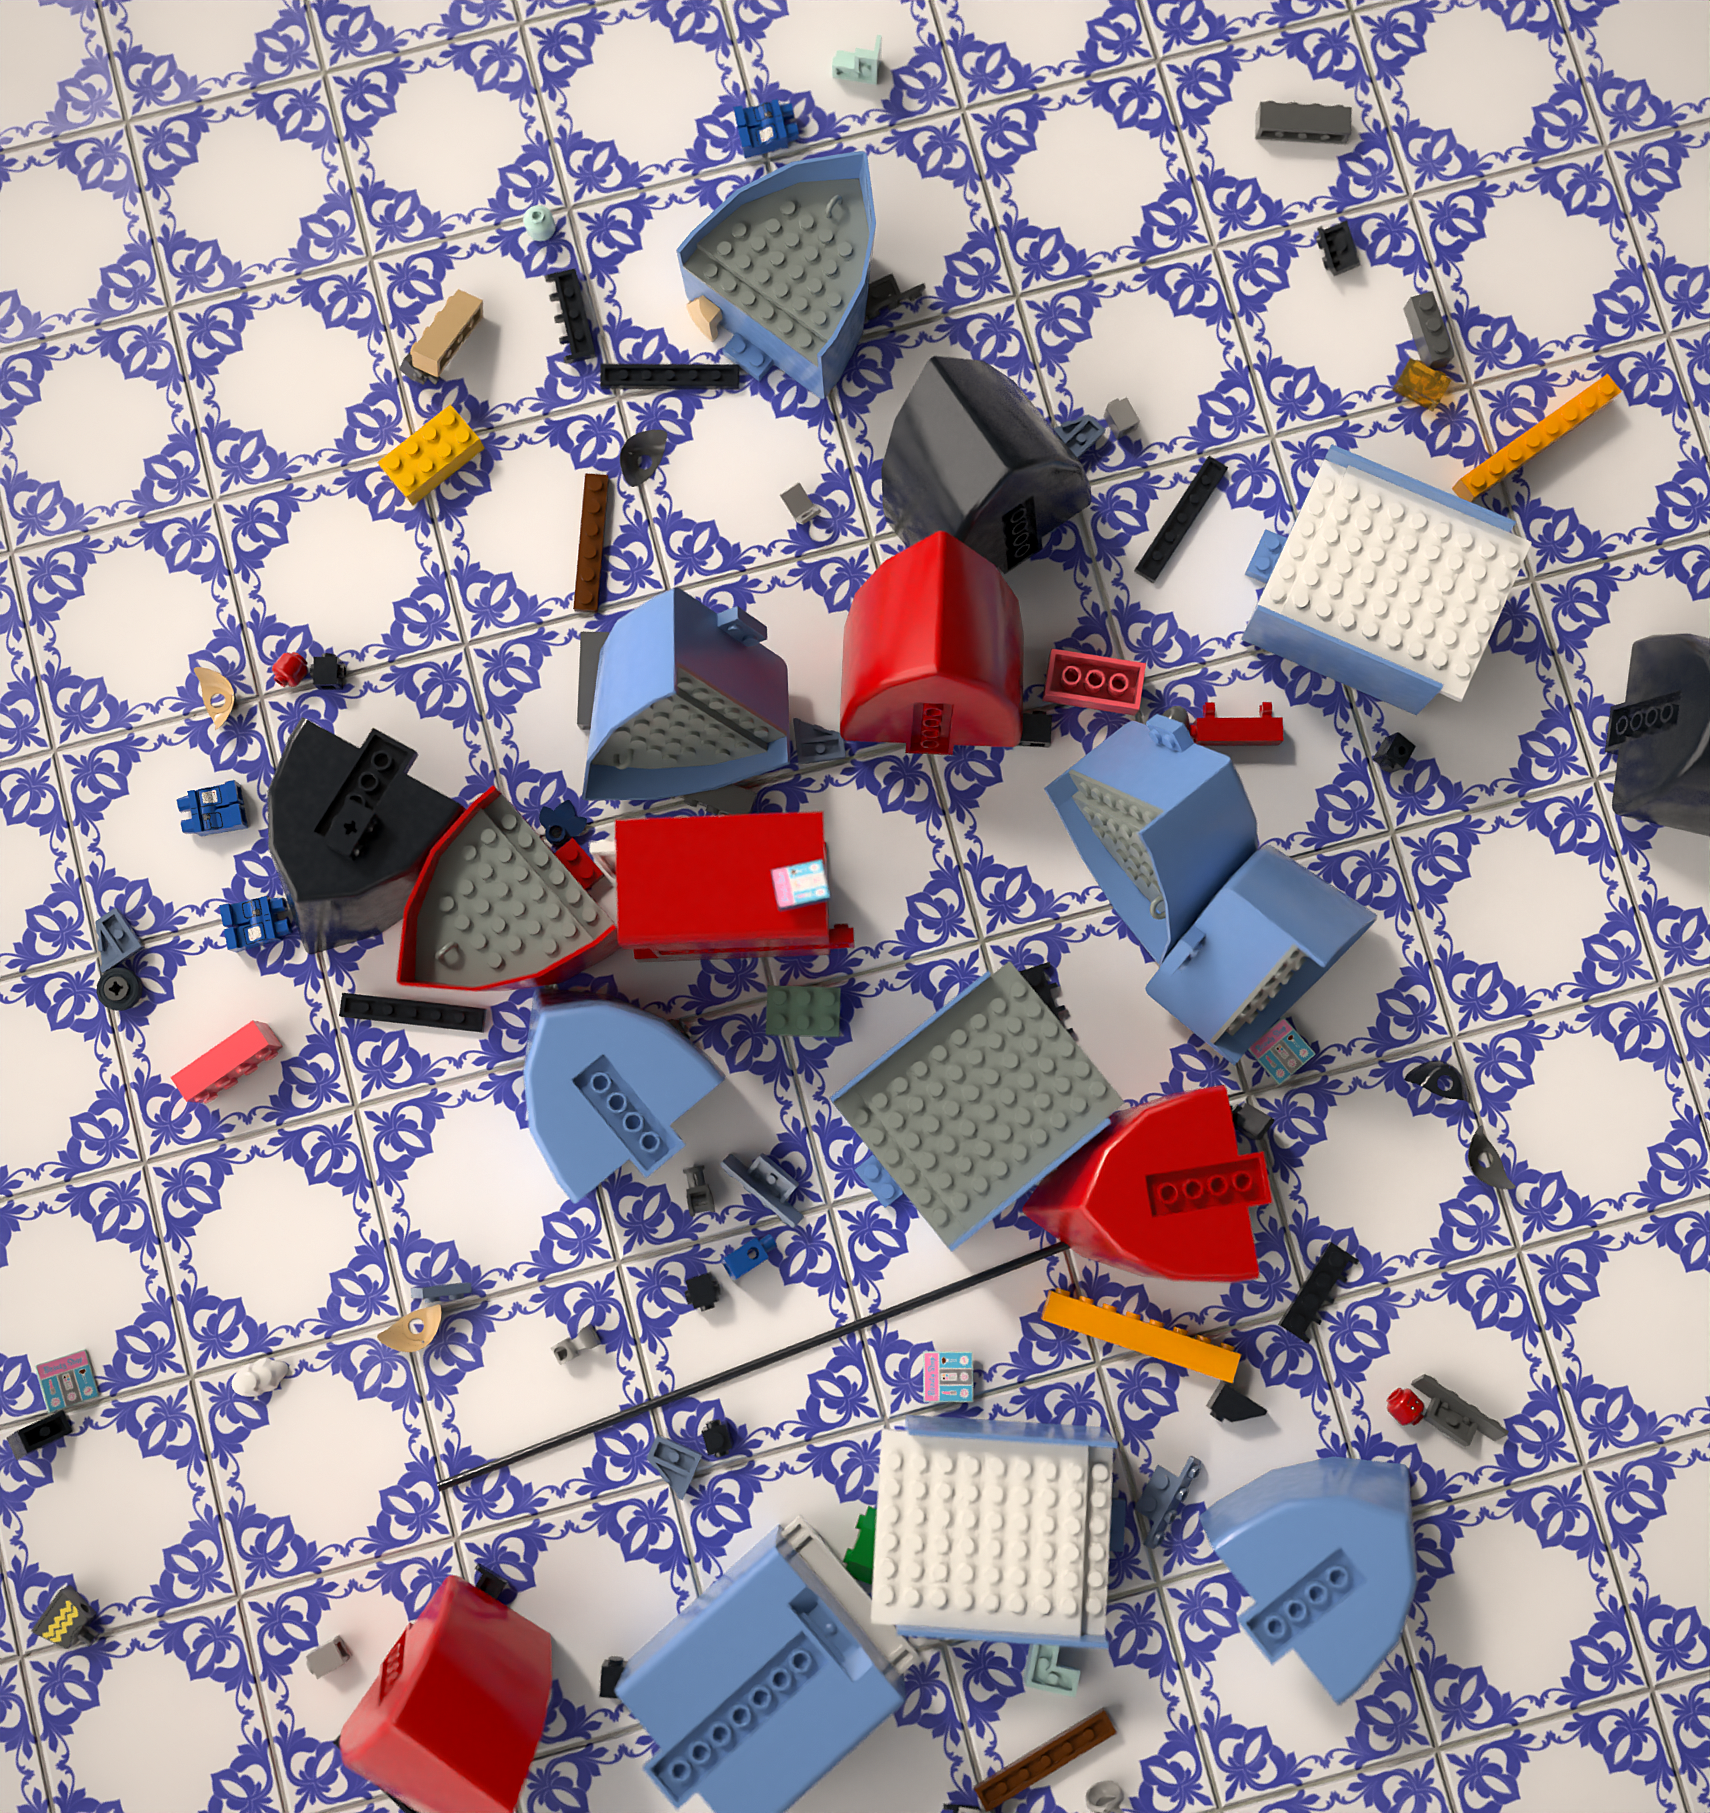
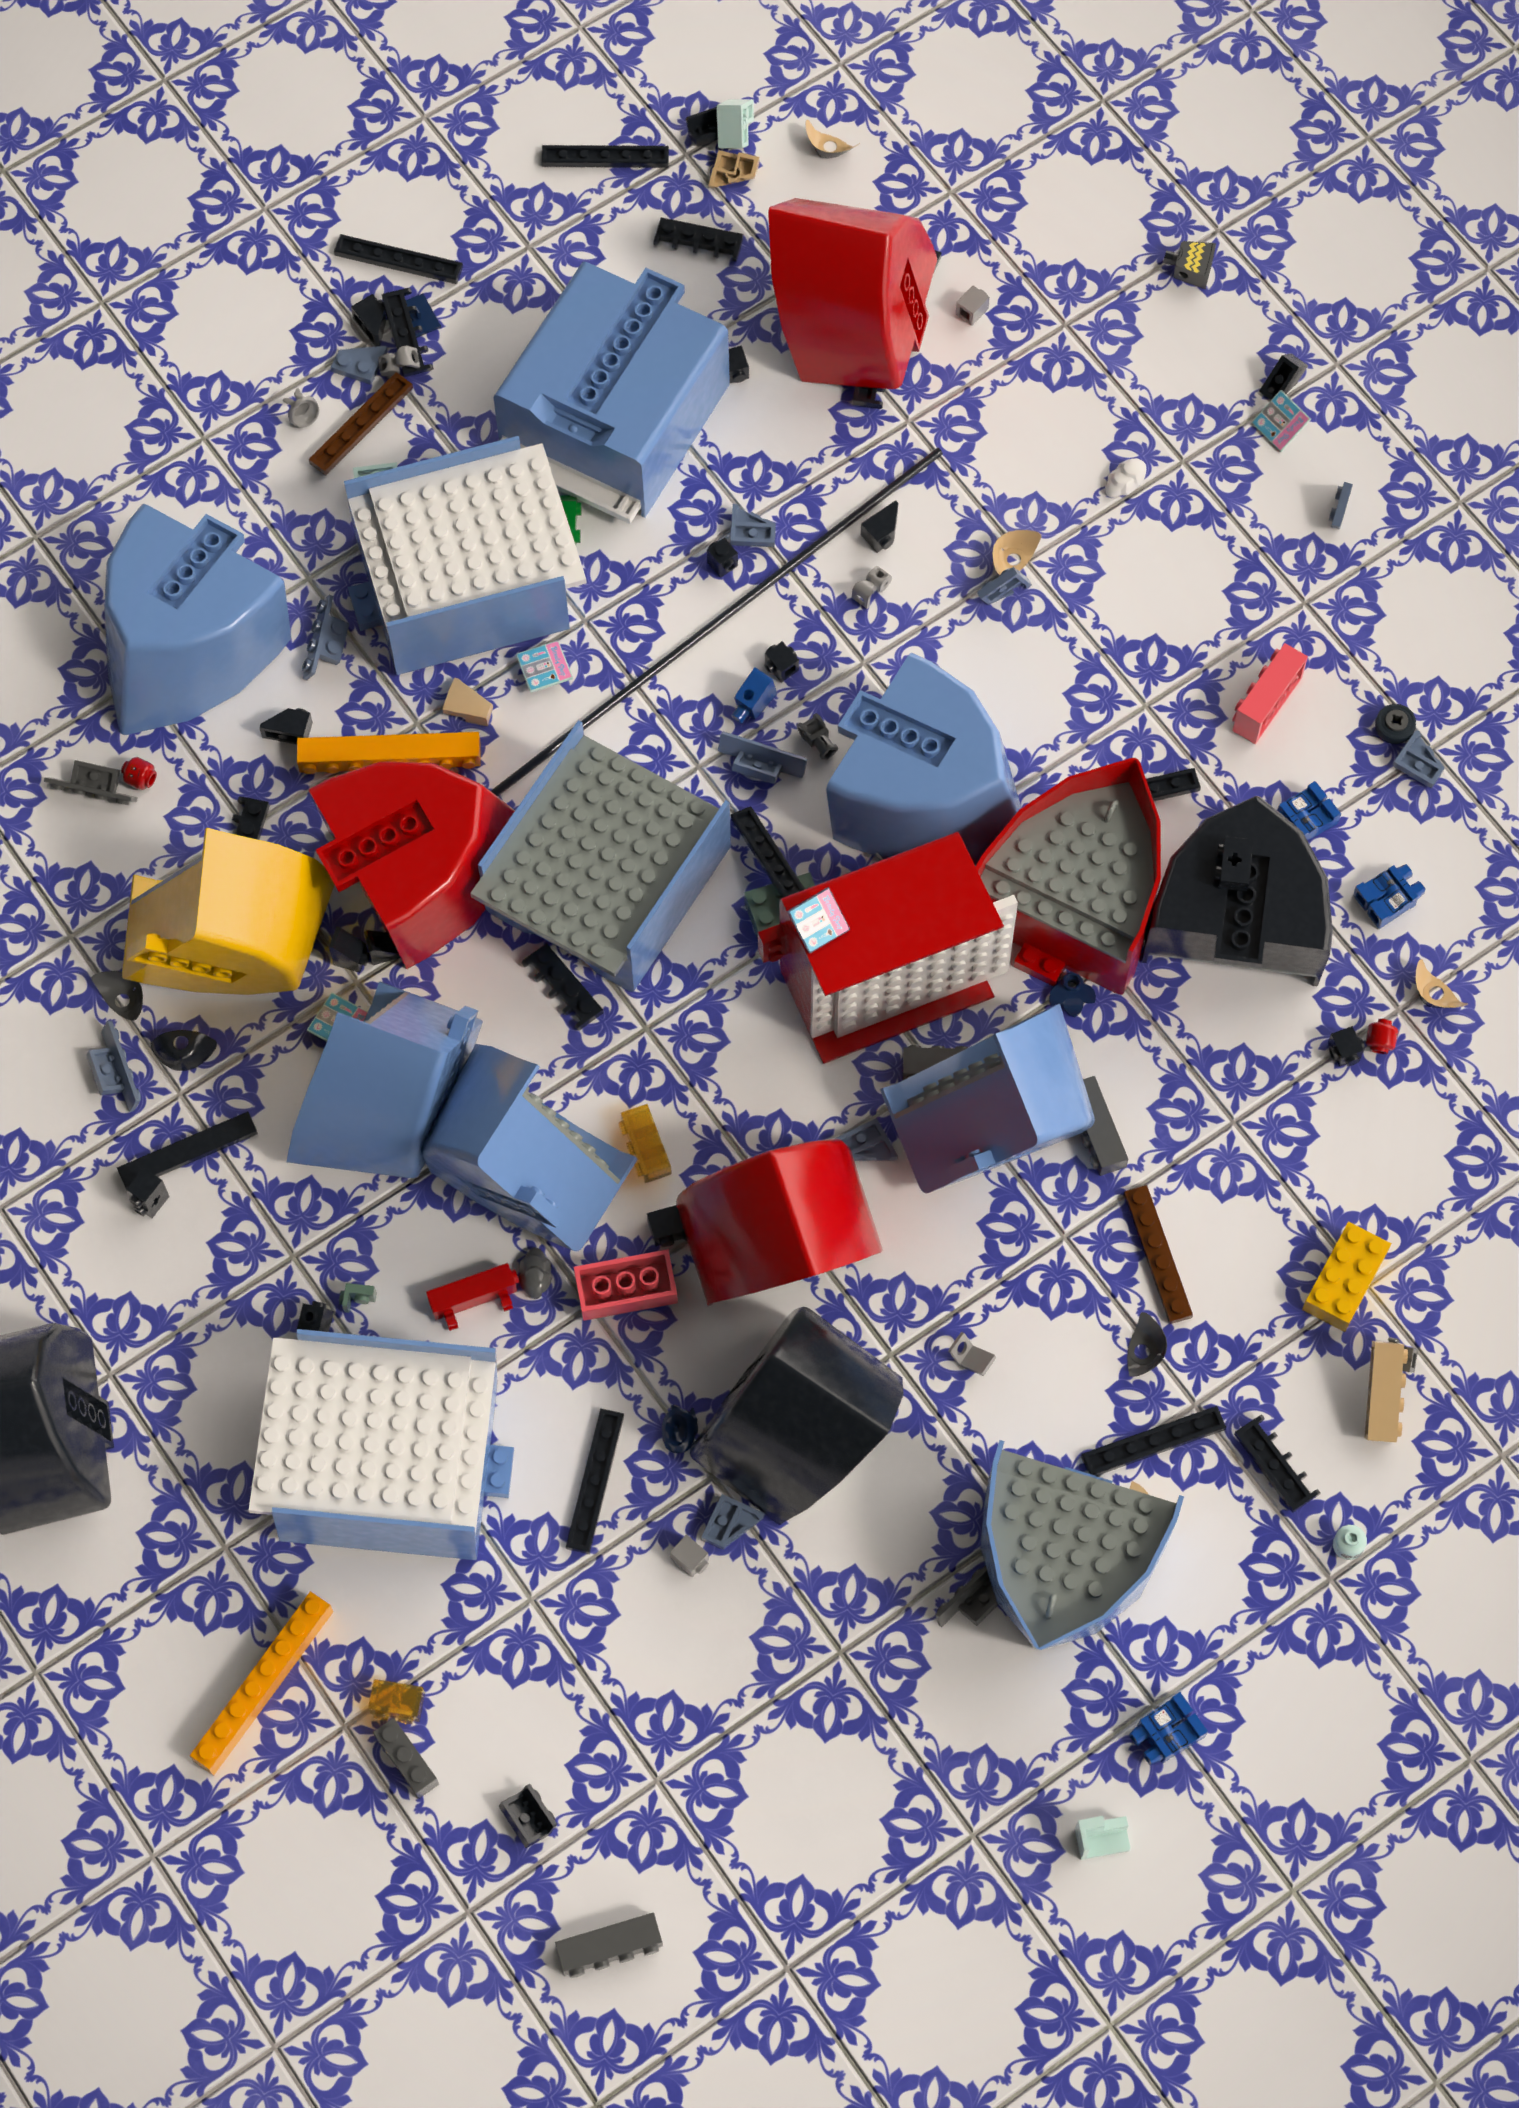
camera: 160 degrees right, 15 degrees down
(51, 1255) = (1343, 496): none -> sand blue wing
(537, 1410) = (881, 527): none -> black slope
(799, 1066) = (766, 852): none -> black tile
(1026, 817) = (645, 1143): none -> clear yellow brick
(1041, 1365) = (467, 703): none -> tan slope
(1091, 532) = (679, 1429): none -> dark blue hat
(1341, 766) = (359, 1293): none -> sand green bracket
(1379, 1178) = (228, 920): none -> yellow piece
(1465, 973) = (190, 1148): none -> black tile
(1520, 934) = (147, 1193): none -> black brick
(1520, 1084) = (111, 1068): none -> sand blue bracket

